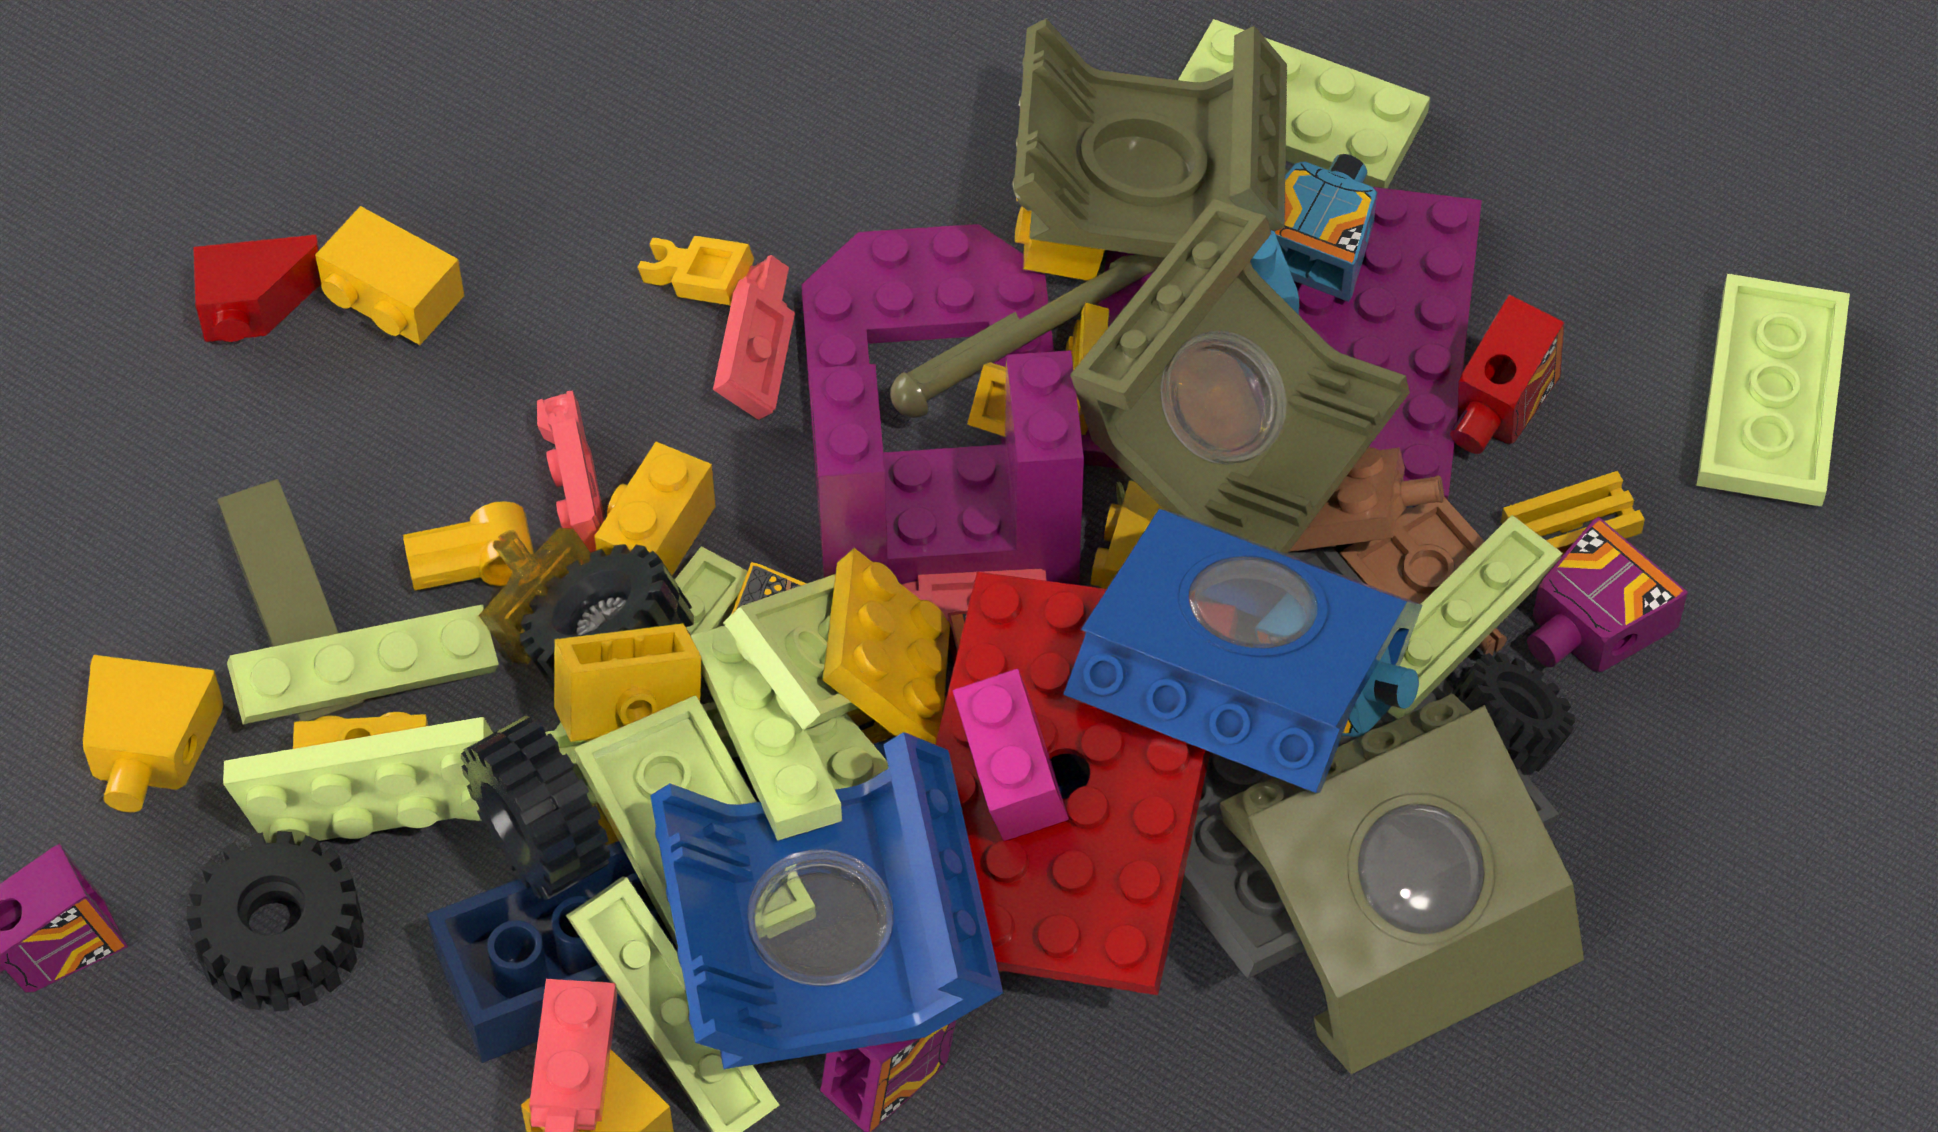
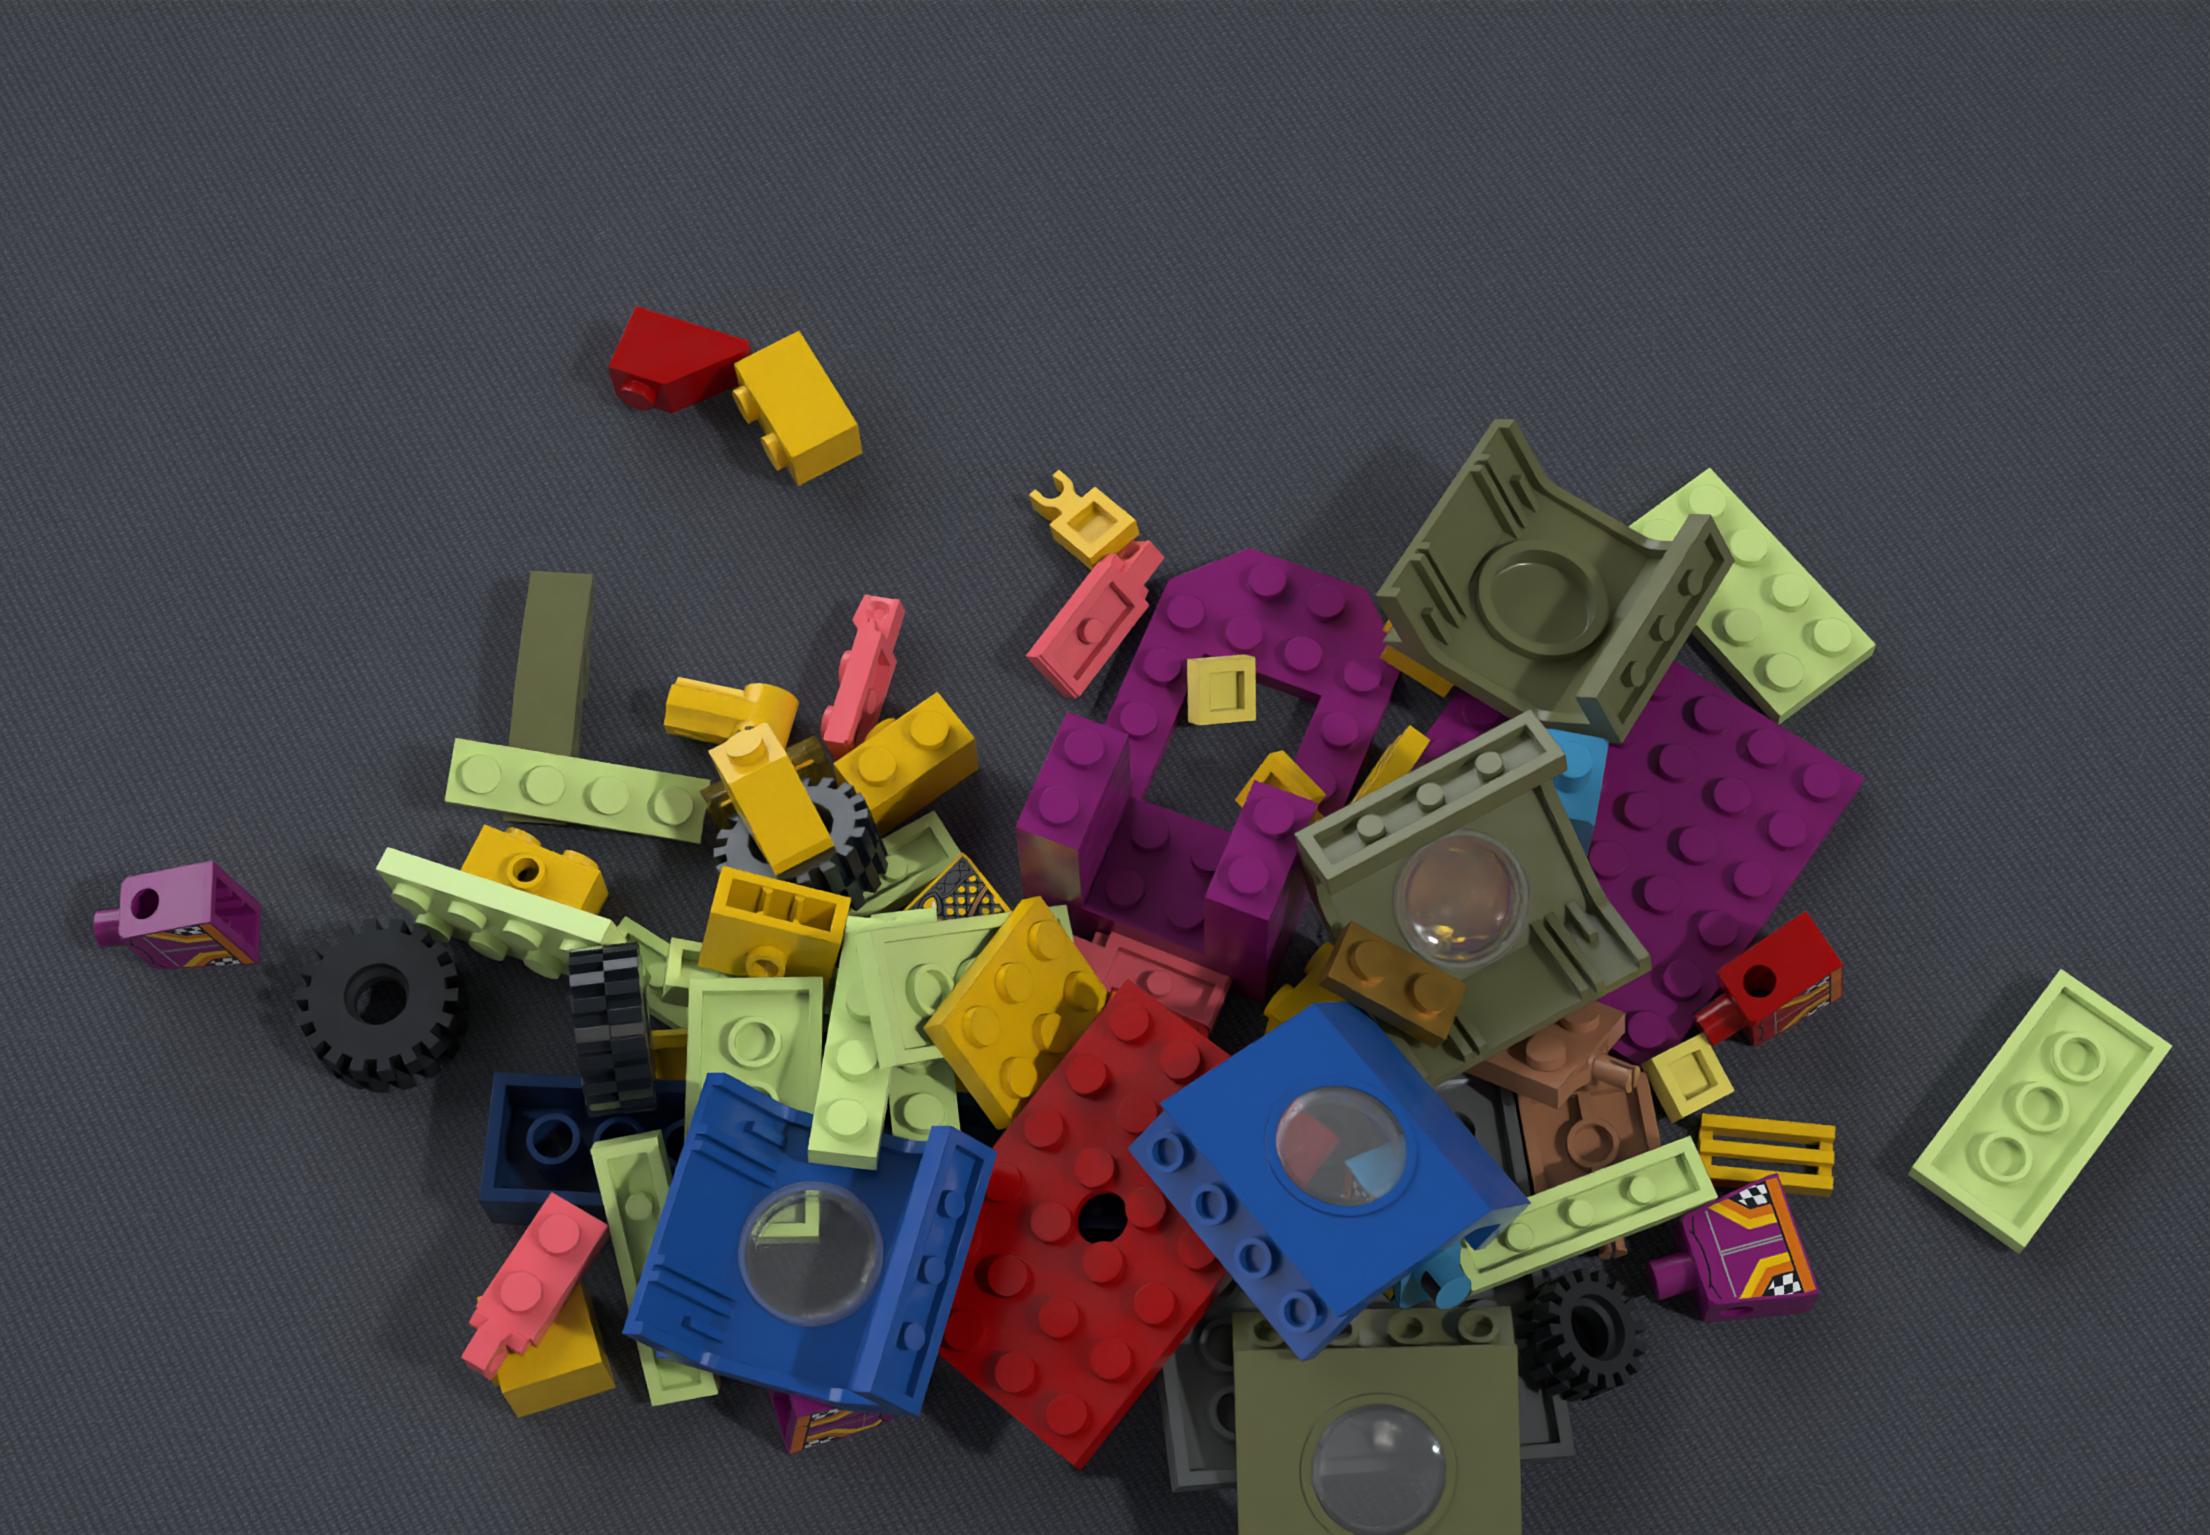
camera: 30 degrees right, 10 degrees up
(146, 725) = (367, 763): yellow torso -> none
(559, 576) = (770, 798): none -> yellow slope
(899, 345) = (1221, 689): none -> light yellow plate
(914, 388) = (1330, 723): olive bar -> none
(1010, 755) = (1049, 1185): dark pink brick -> none
(1207, 483) = (1393, 984): none -> pearl gold plate
(1327, 224) = (1682, 745): dark azure torso -> none
(1477, 484) = (1687, 1077): none -> light yellow plate

